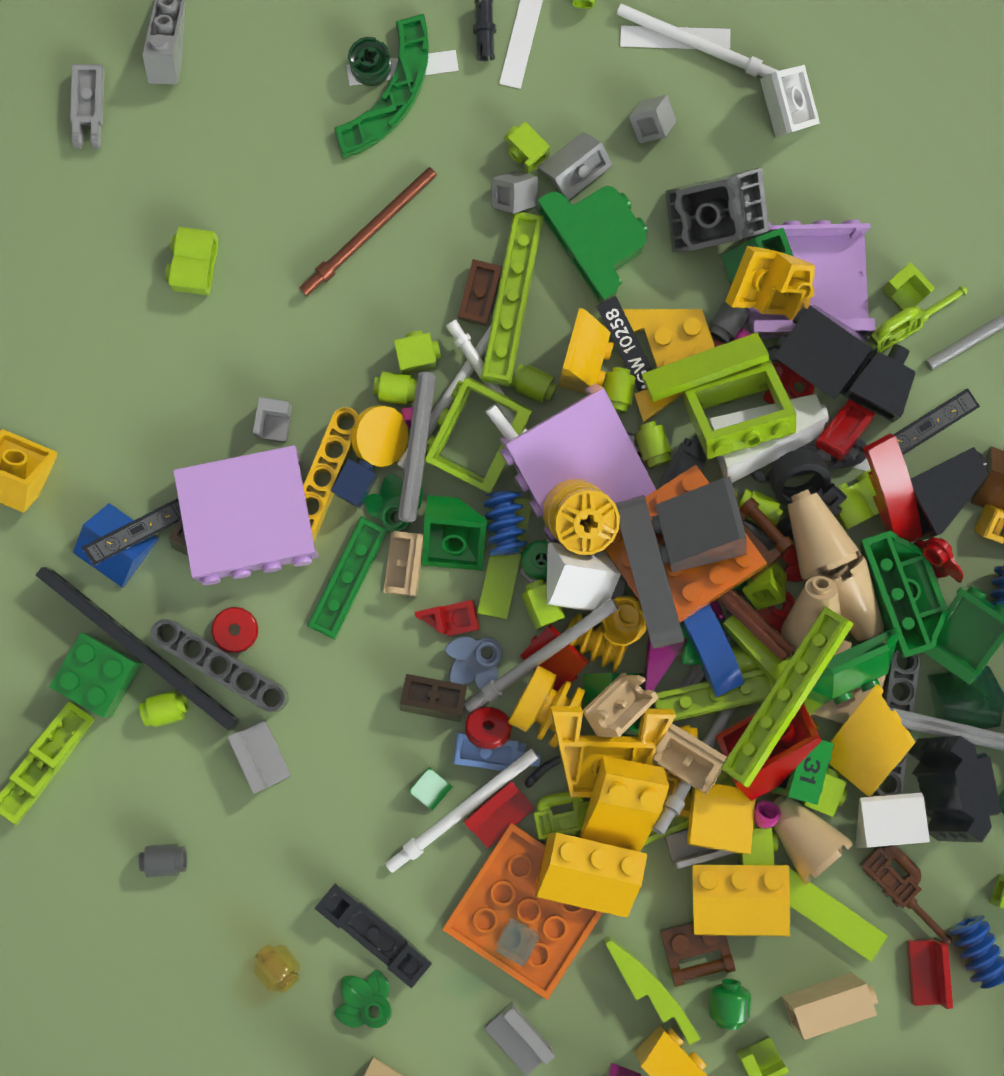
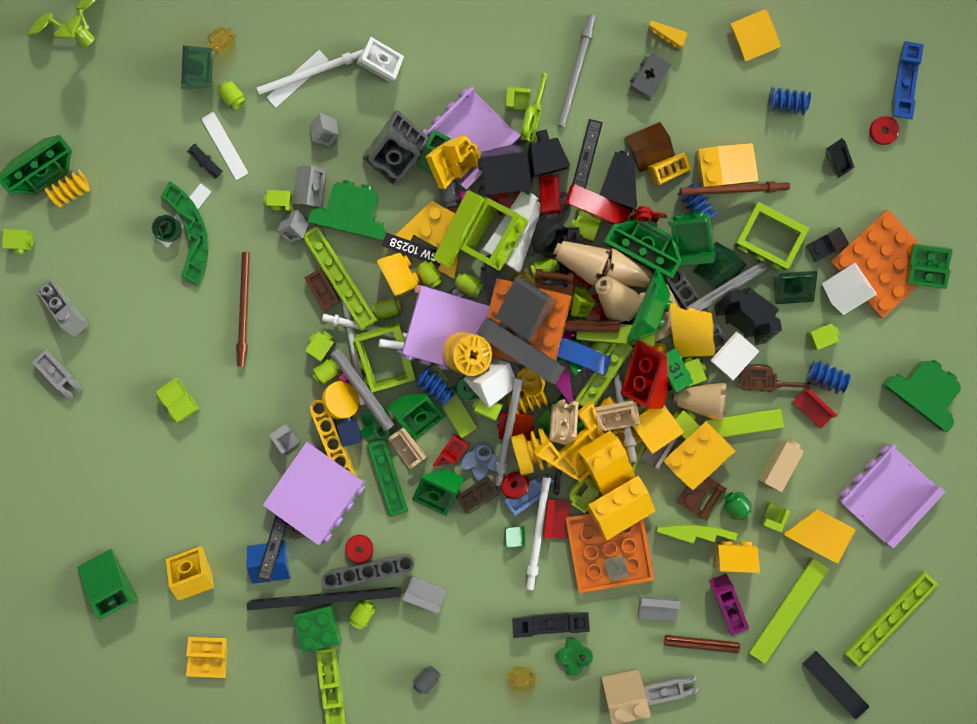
camera: 30 degrees left, 5 degrees up
(392, 648) = (438, 490): none -> green slope
(766, 814) = (677, 405): dark pink hinge -> none
(786, 696) = (634, 349): lime tile -> none

